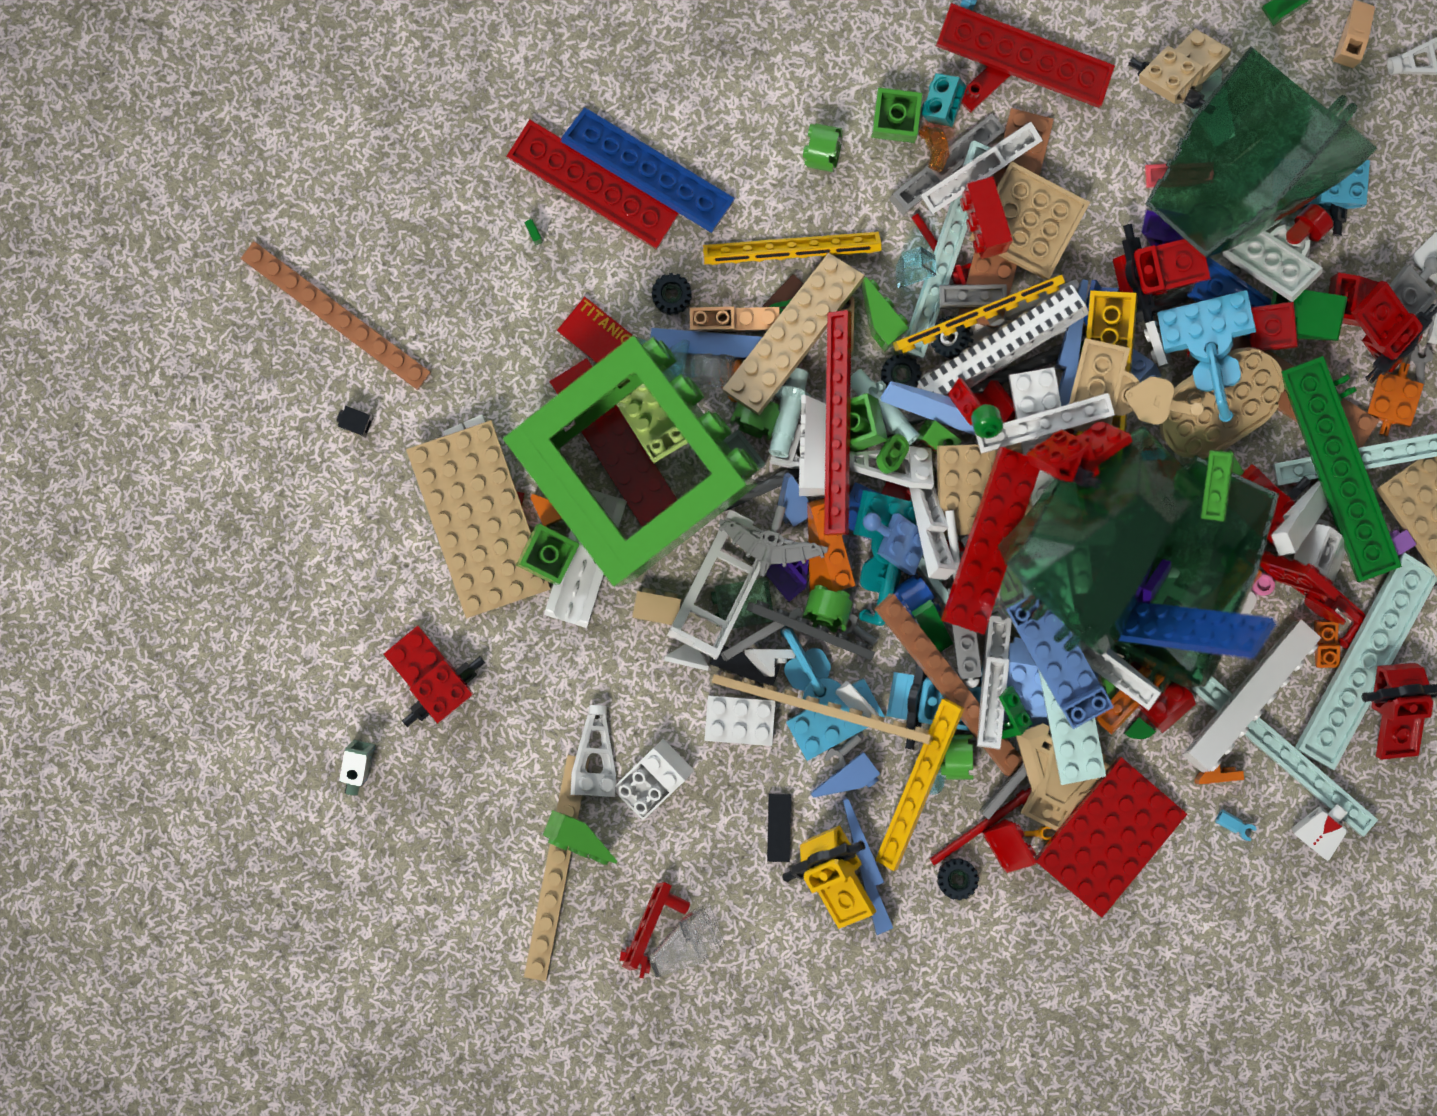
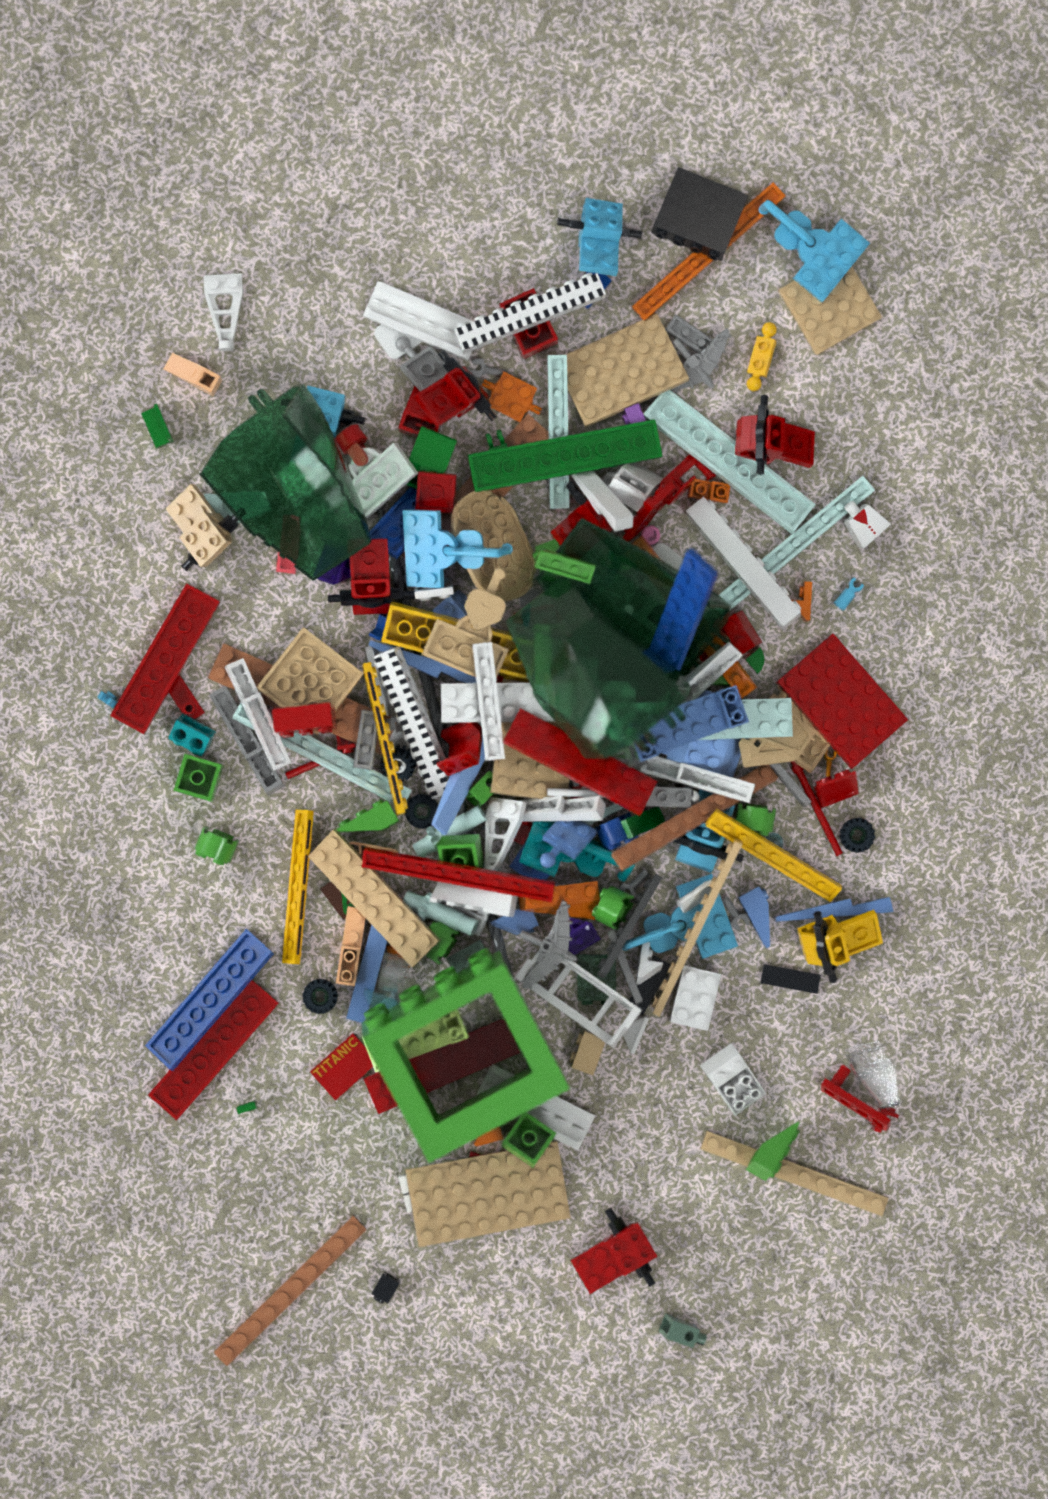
camera: 85 degrees left, 0 degrees up
(601, 783) = (728, 1133): white plate -> none
(890, 458) = (493, 832): bright green plate -> none
(915, 266) = (333, 784): clear light blue slope -> none
(938, 147) = (232, 747): clear orange arm -> none
(987, 421) = (479, 750): green head -> none
(1018, 718) = (732, 763): green bracket -> none
(1077, 457) = (524, 682): red piece -> none
(1155, 582) = (636, 629): dark purple slope -> none

